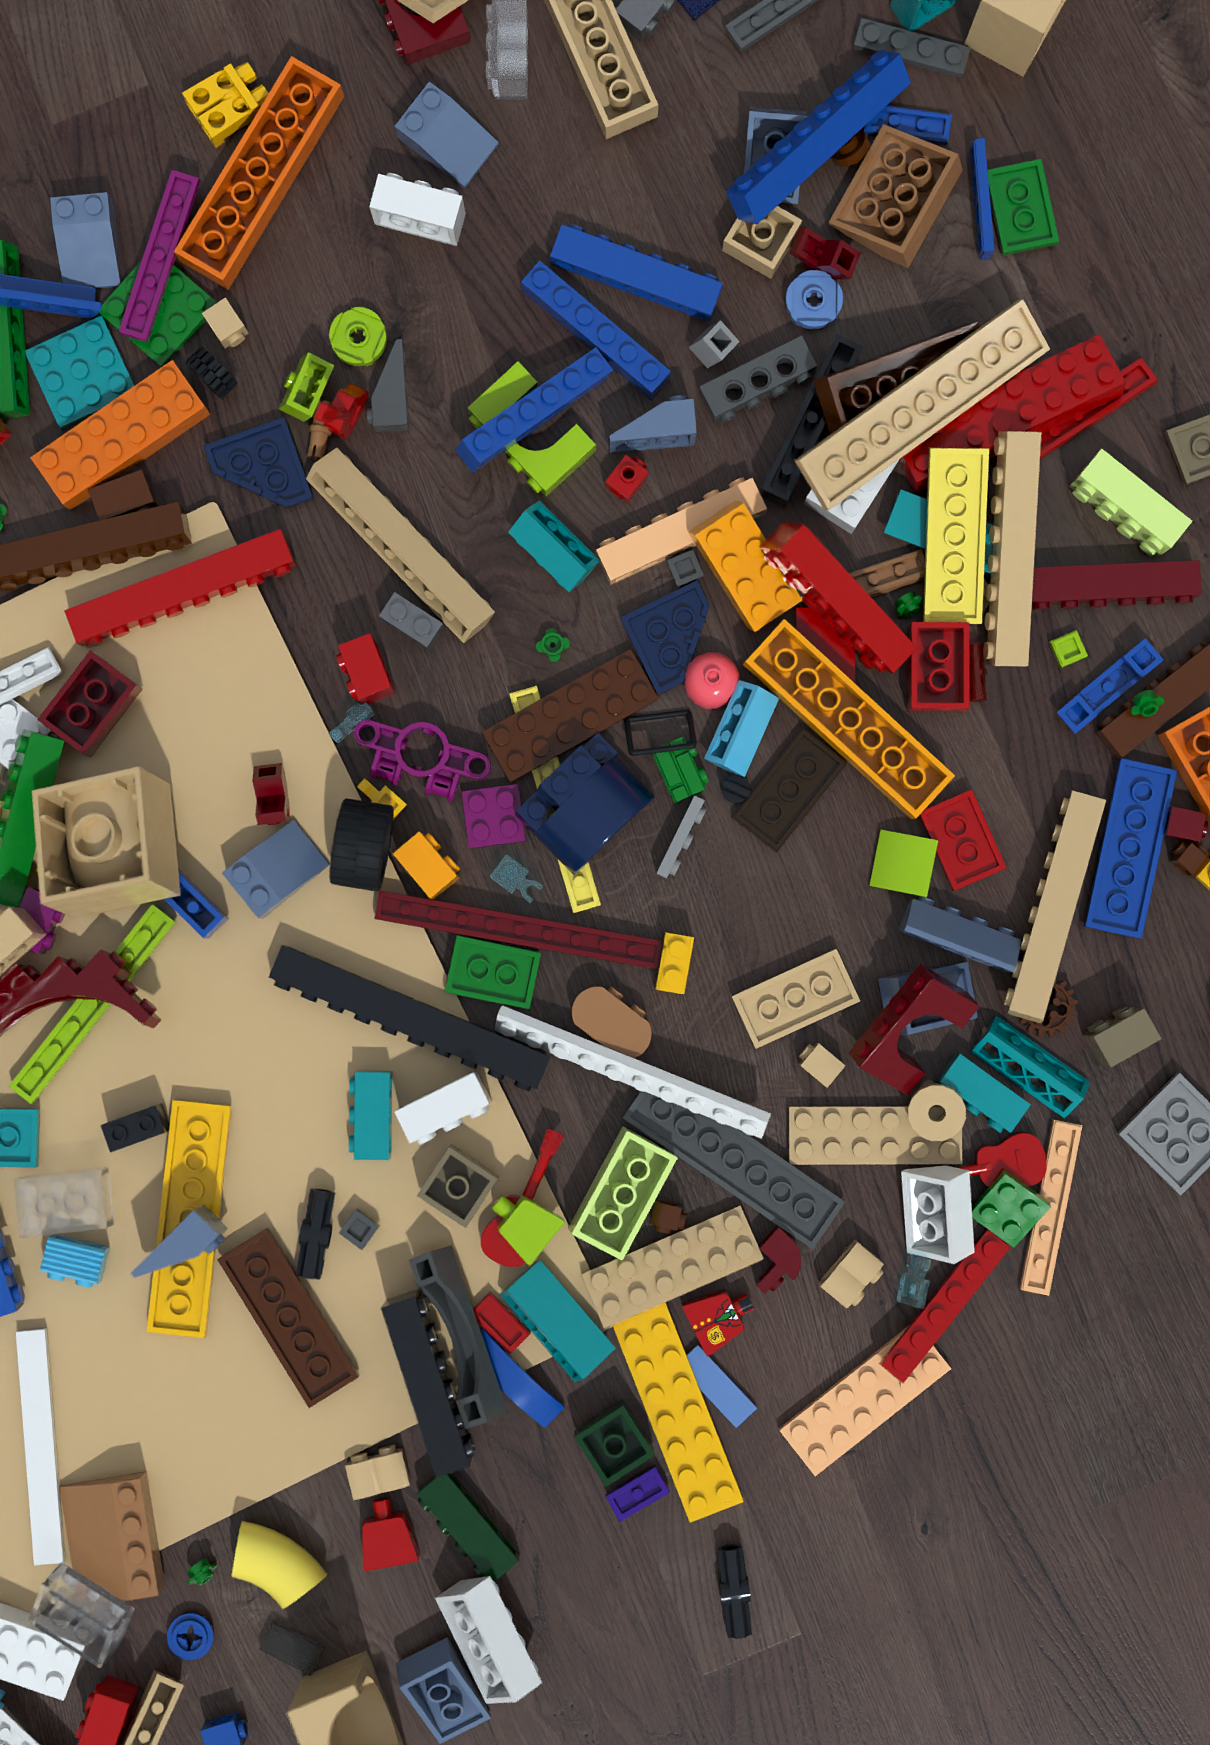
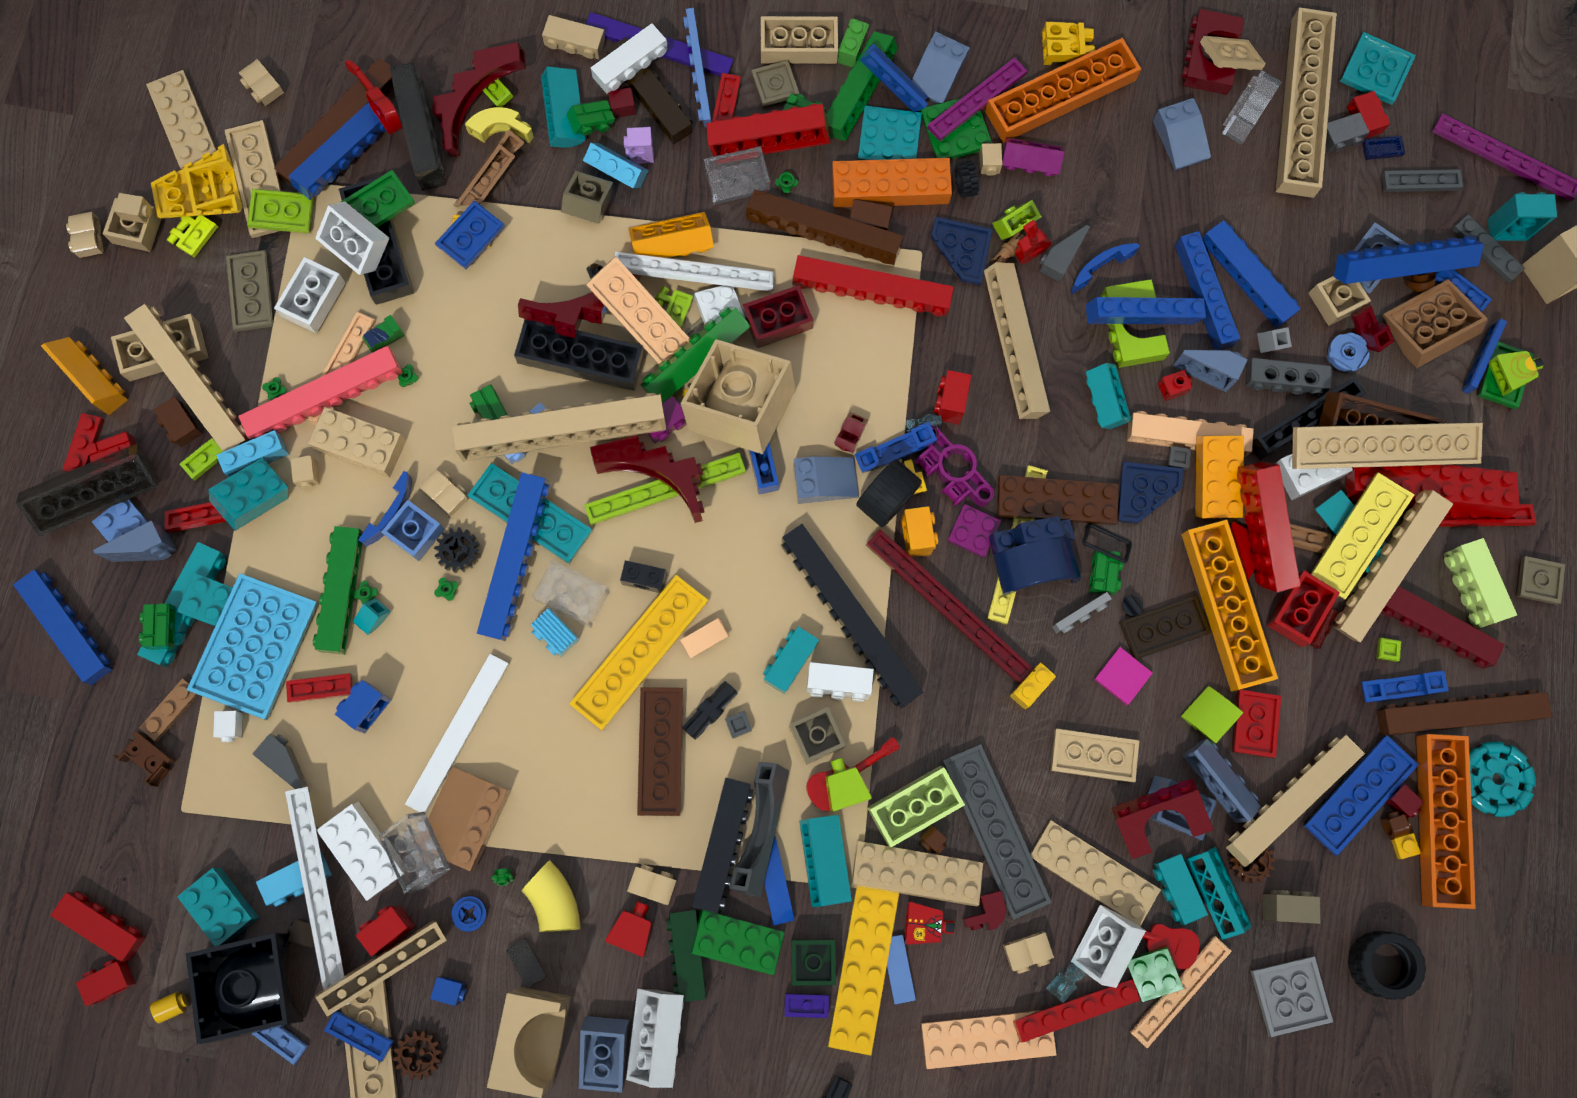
camera: 25 degrees right, 10 degrees down
(194, 1235) = (633, 661): sand blue slope -> none
(254, 1153) = (704, 637): none -> light nougat slope
(275, 288) = (1032, 156): none -> magenta brick
(336, 778) = (896, 448): none -> blue slope
(373, 330) = (1055, 219): lime plate -> none
(412, 621) = (996, 388): flat silver brick -> none
(417, 208) = (1143, 162): white brick -> none
(461, 345) = (1119, 252): none -> blue slope
(492, 972) = (917, 621): green plate -> none
(500, 1323) = (788, 840): red tile -> none
(512, 877) = (964, 572): clear light blue plate -> none
(516, 1476) = (737, 942): none -> green plate
(544, 645) = (1077, 455): green plate -> none
(611, 1021) = (972, 697): medium nougat brick -> none
(632, 1072) = (969, 737): white plate -> none
(711, 680) = (1156, 532): coral cylinder -> none
(741, 728) = (1159, 570): medium azure brick -> none
(774, 881) = (1123, 676): none -> dark pink tile
(820, 1064) = (1087, 805): tan brick -> none
(908, 605) = (1305, 561): green plate -> none
(932, 1128) = (1139, 893): tan tile -> none
(1028, 198) = (1514, 370): none -> lime torso
(1146, 703) = (1425, 709): green plate -> none

